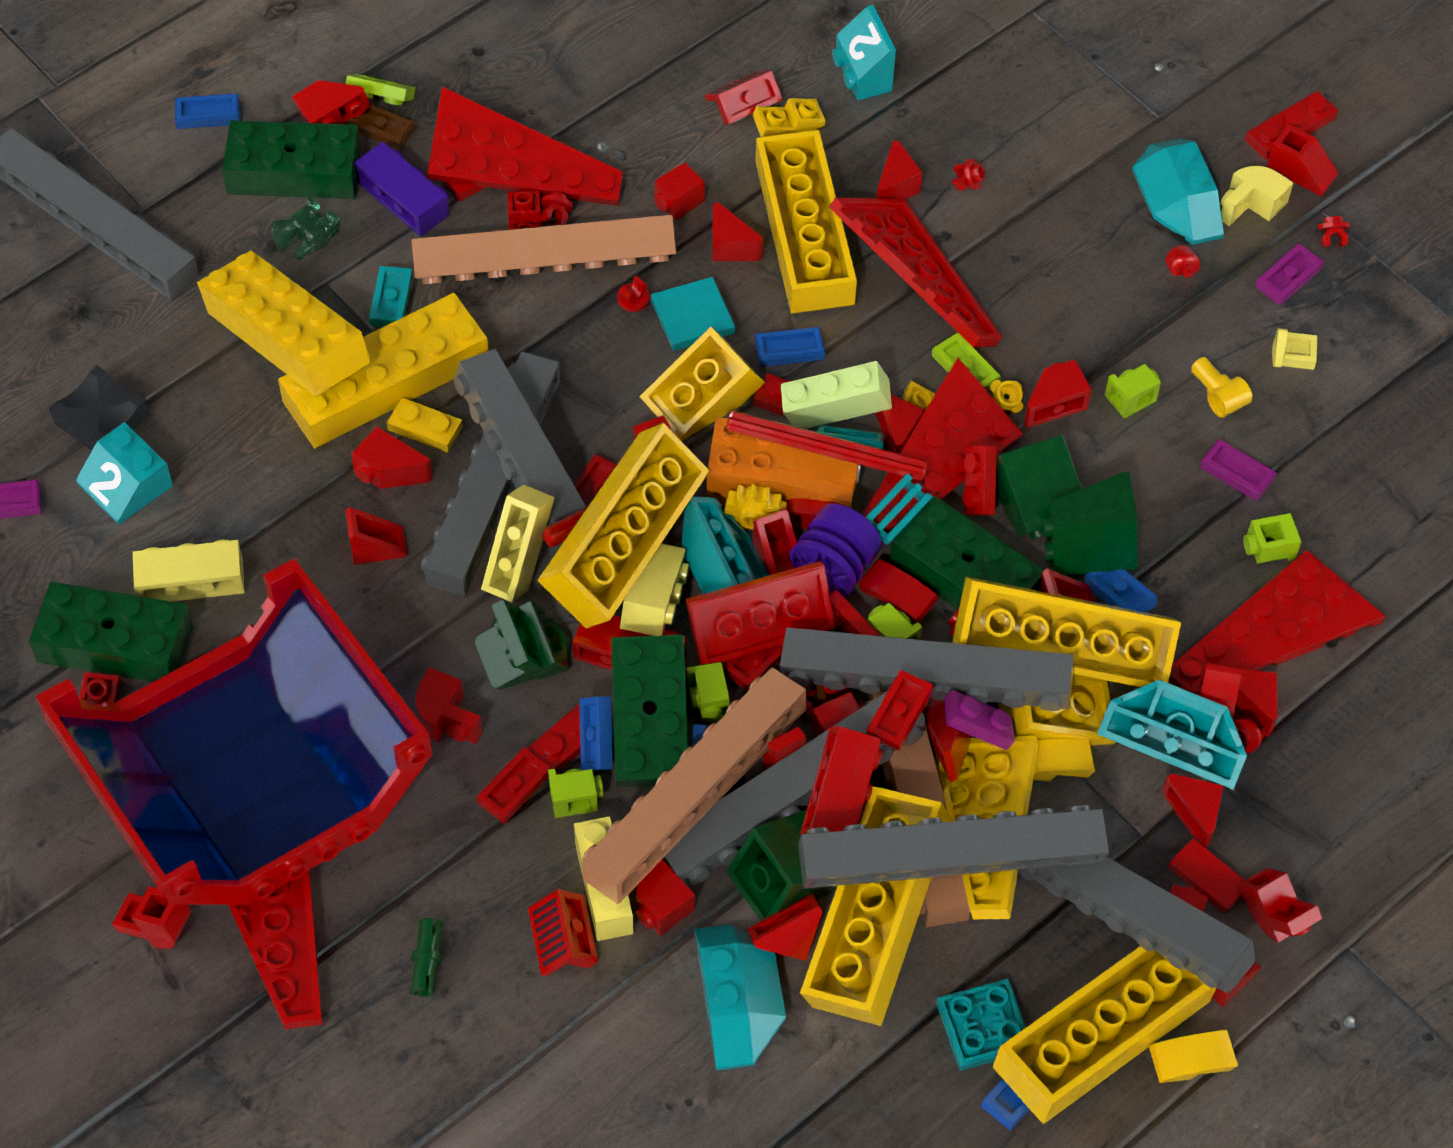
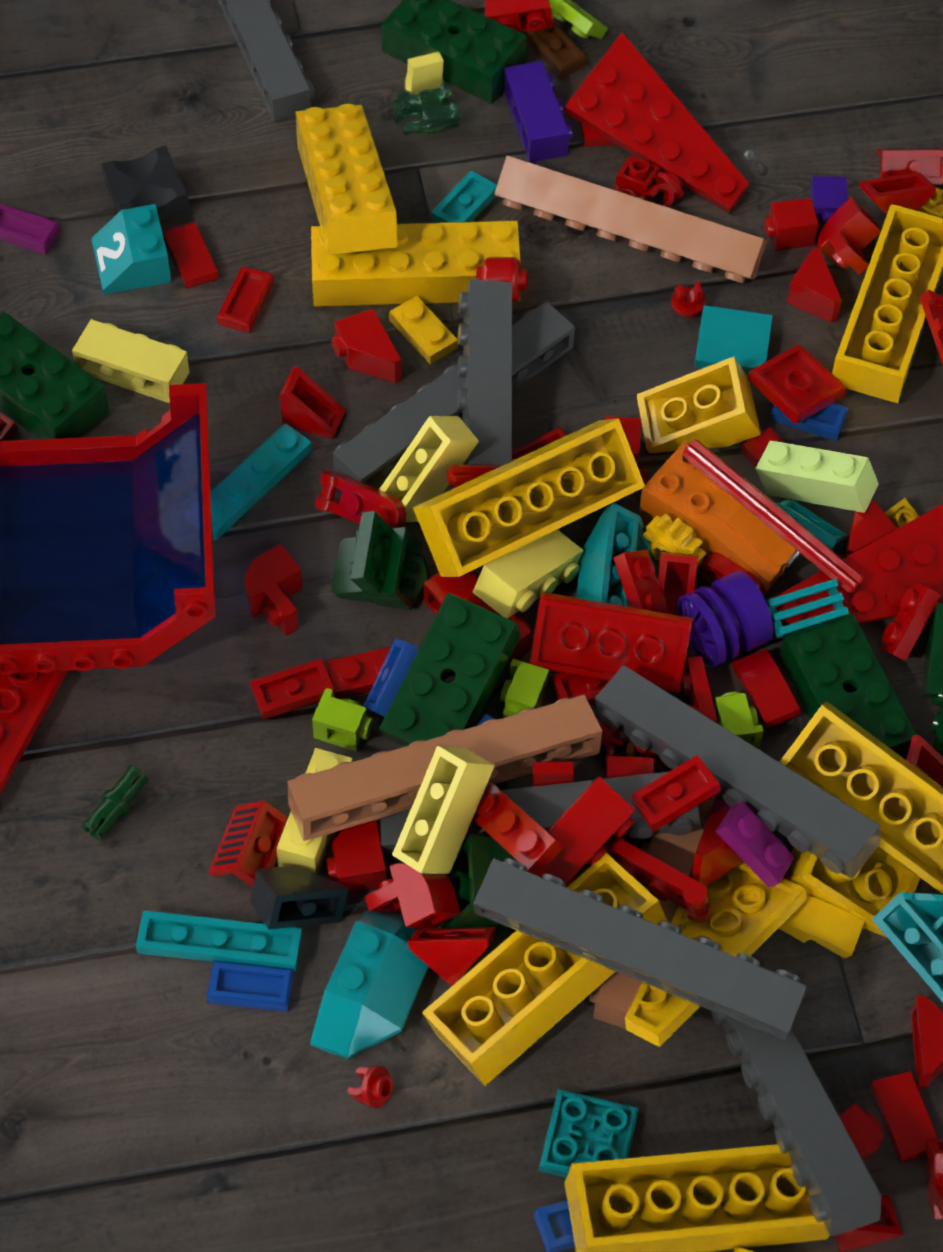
camera: 30 degrees right, 0 degrees up
(179, 453) = (190, 255): none -> red tile
(251, 470) = (245, 299): none -> red tile
(283, 198) = (424, 73): none -> light yellow tile
(368, 603) = (256, 477): none -> teal plate
(470, 598) = (358, 498): none -> red plate
(474, 342) = (504, 270): none -> red head
(589, 1025) = (218, 940): none -> teal plate
(633, 955) = (296, 898): none -> black slope
(637, 1049) = (250, 986): none -> blue tile
(699, 156) = (827, 196): none -> dark purple brick
(724, 818) = (443, 810): none -> light yellow brick
(731, 181) = (847, 234): none -> red brick
(735, 894) = (421, 897): none -> red brick
(751, 554) = (640, 581): none -> red plate
(756, 121) = (901, 190): none -> red slope
(768, 326) = (797, 383): none -> red tile
(789, 804) = (515, 830): none -> red plate
(795, 1075) = (376, 1086): none -> red plate
(929, 785) = (663, 880): none -> red plate

